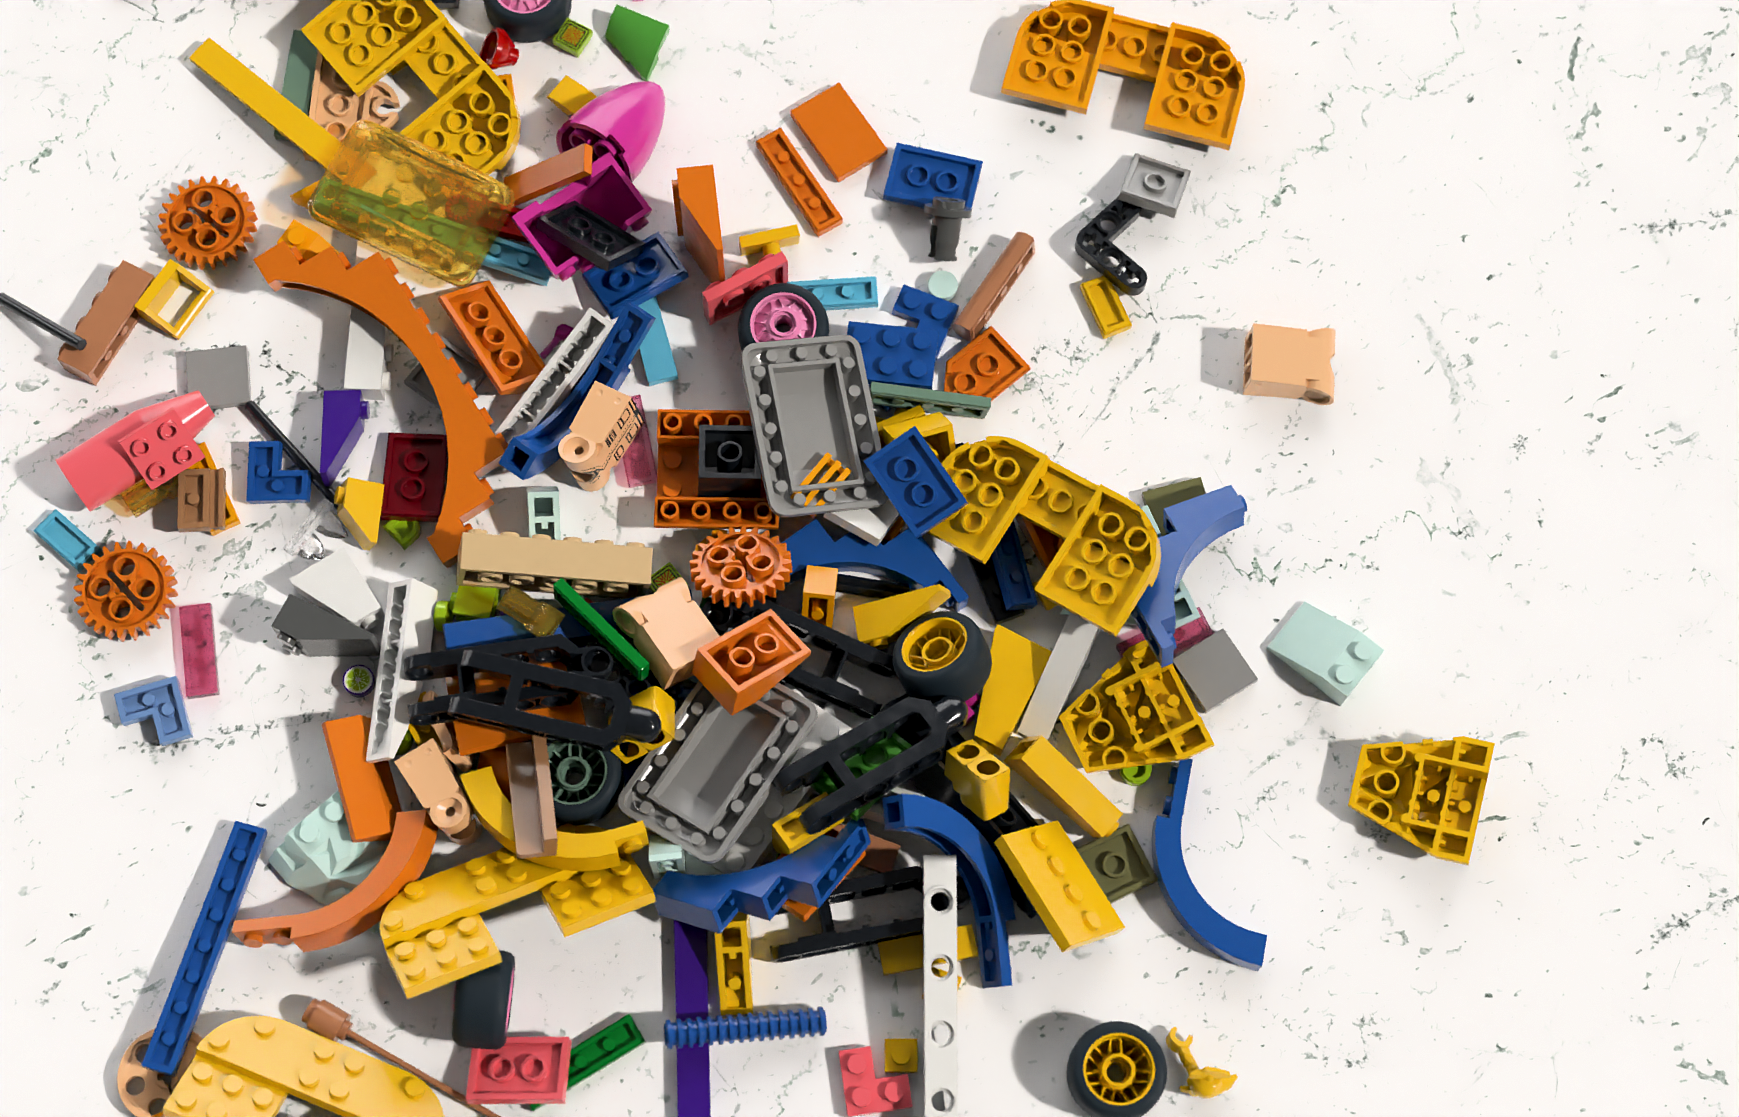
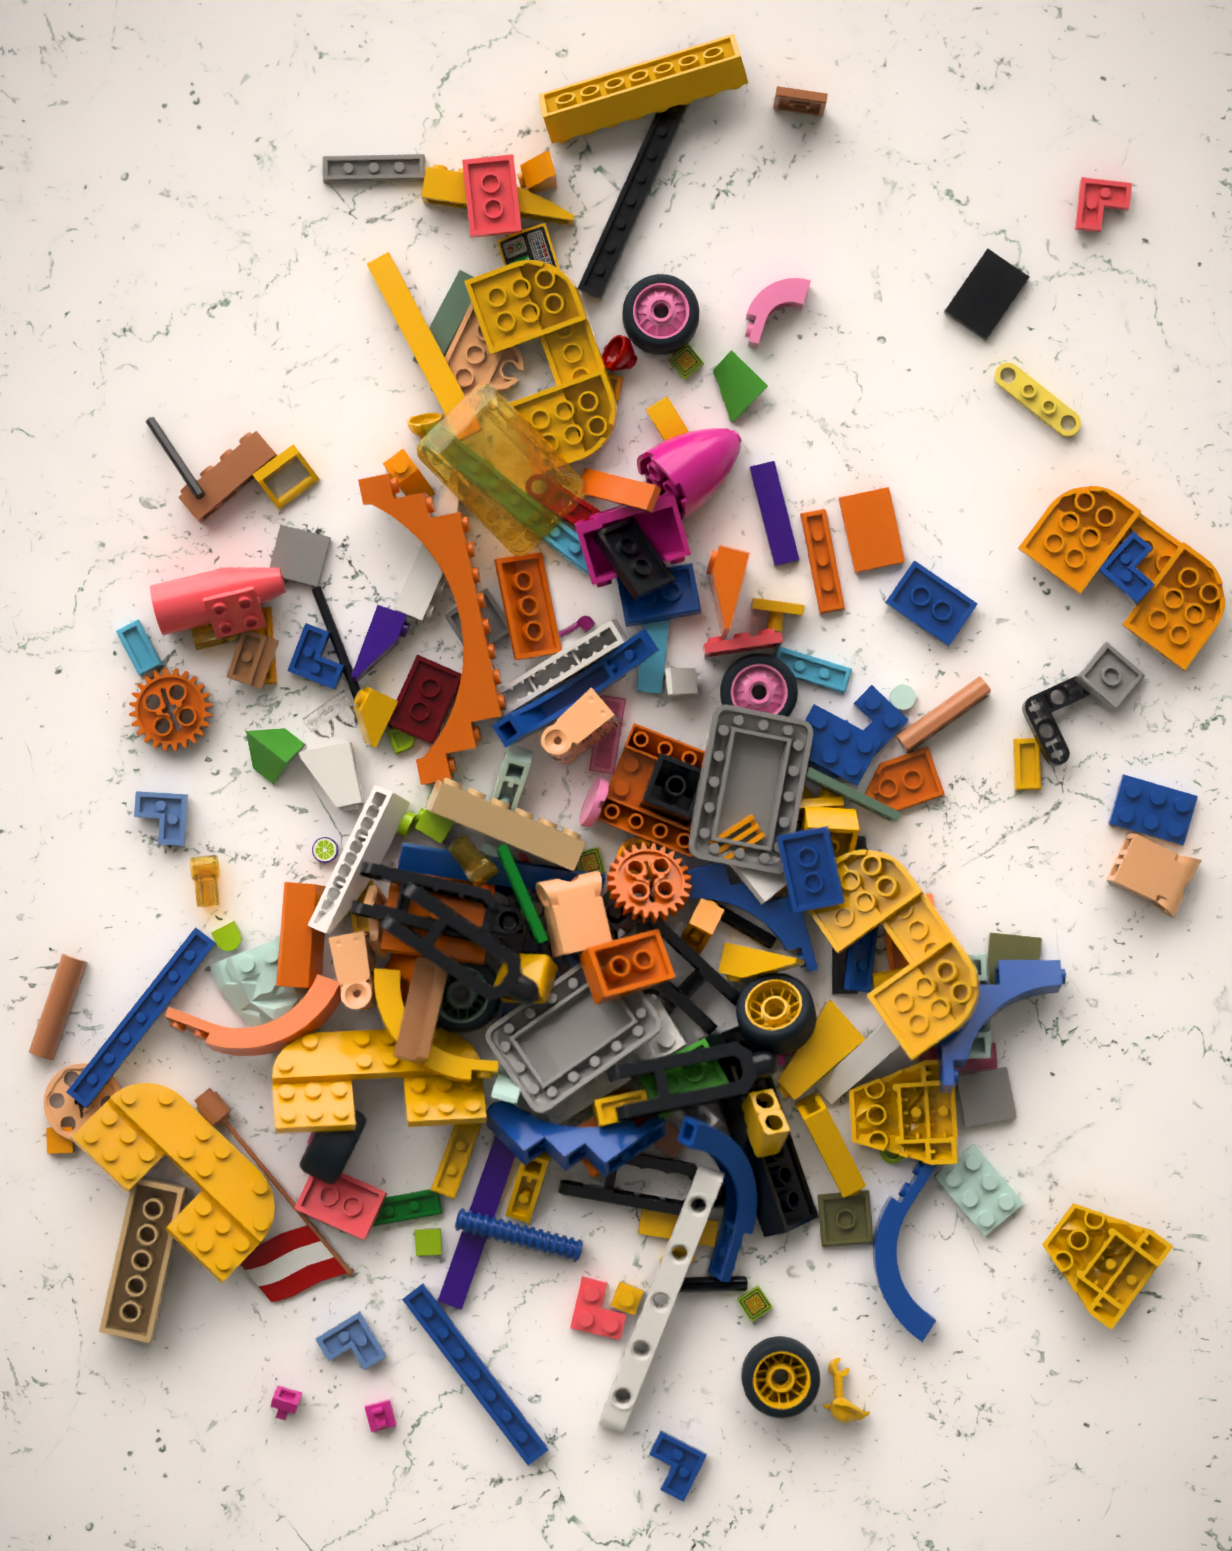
camera: 25 degrees right, 15 degrees up
(101, 975) = (57, 1007): none -> nougat brick
(190, 242) = (315, 430): orange gear -> none
(199, 651) = (211, 777): clear pink tile -> none
(227, 757) = (205, 874): none -> clear yellow piece
(258, 594) = (272, 751): none -> bright green slope
(278, 819) = (228, 937): none -> lime tile
(320, 633) = (302, 800): dark grey slope -> none
(637, 969) = (455, 1159): none -> yellow tile
(641, 1081) = (428, 1241): none -> lime tile
(646, 511) = (591, 807): none -> bright pink tile
(694, 352) = (682, 682): none -> white slope
(727, 152) = (774, 513): none -> dark purple tile
(946, 226) = (928, 645): dark grey piece -> none
(995, 999) = (712, 1284): none -> black axle
(1051, 1003) = (754, 1303): none -> tile
(1059, 885) = (794, 1225): yellow plate -> none
(1121, 71) = (1123, 571): none -> blue plate
(1250, 775) = (979, 1190): none -> light aqua plate
(1259, 299) = (1152, 809): none -> blue plate
(1325, 651) = (1078, 1116): light aqua slope -> none

